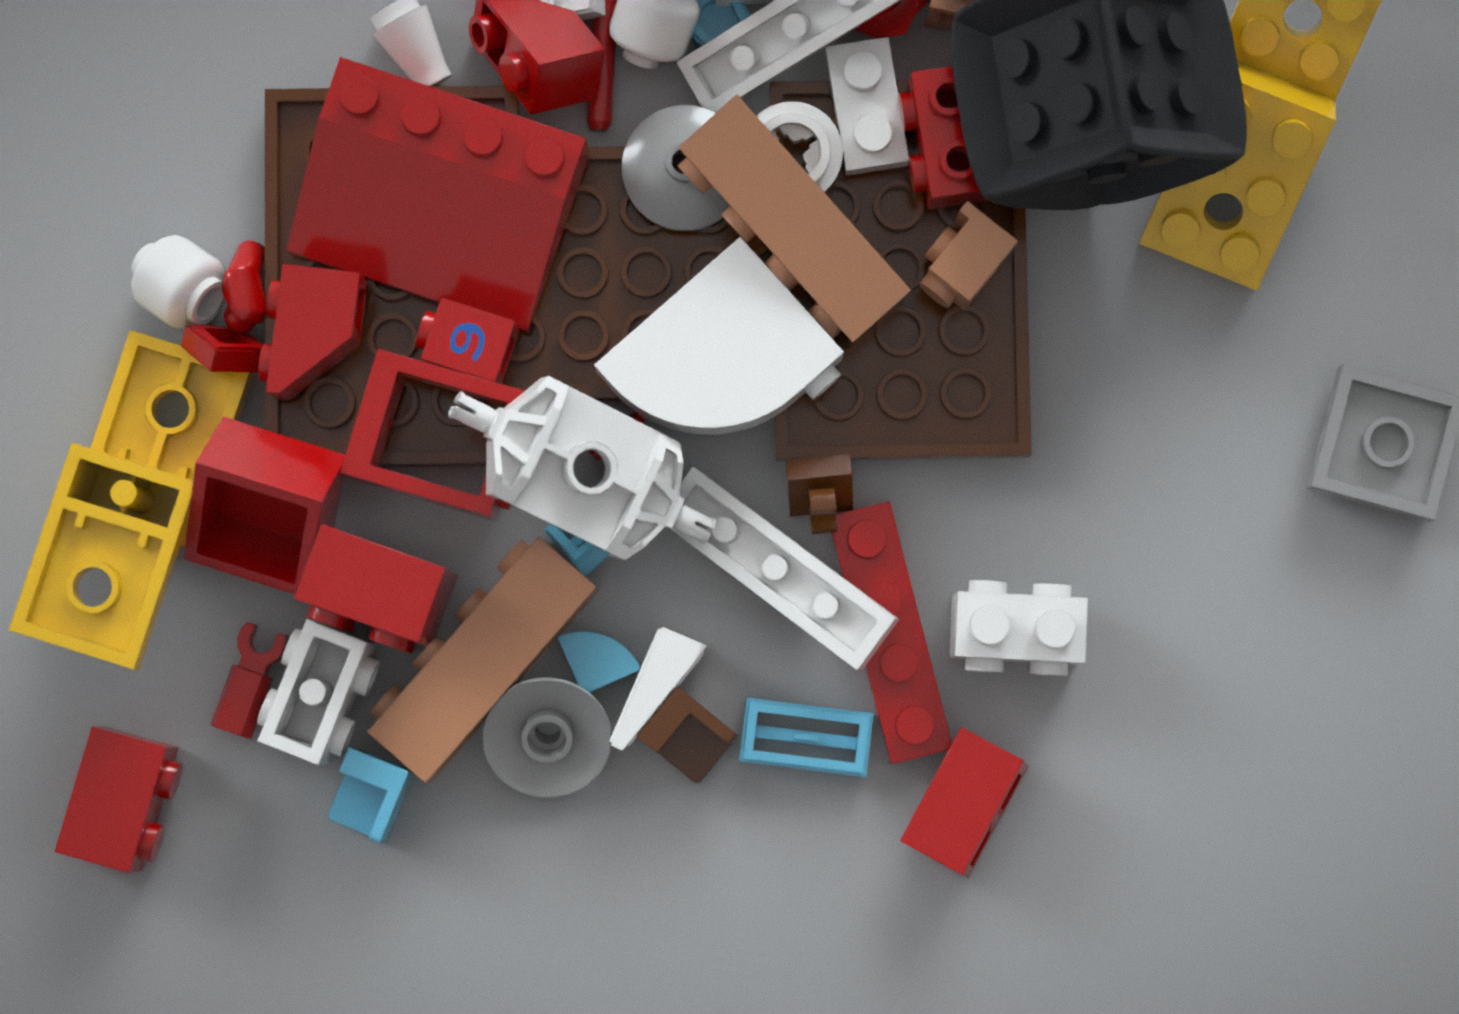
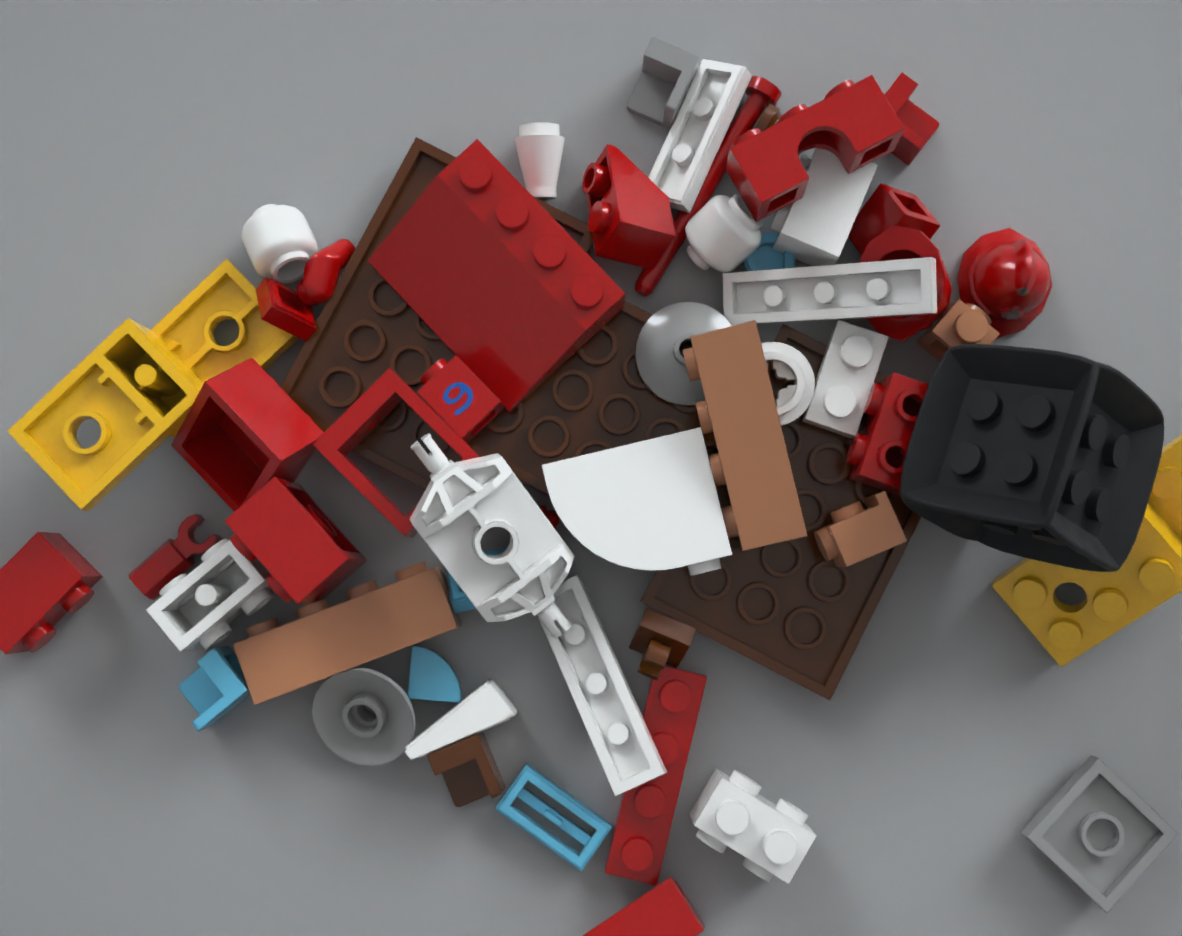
camera: 30 degrees right, 0 degrees up
(314, 328) = (354, 327): red slope -> none

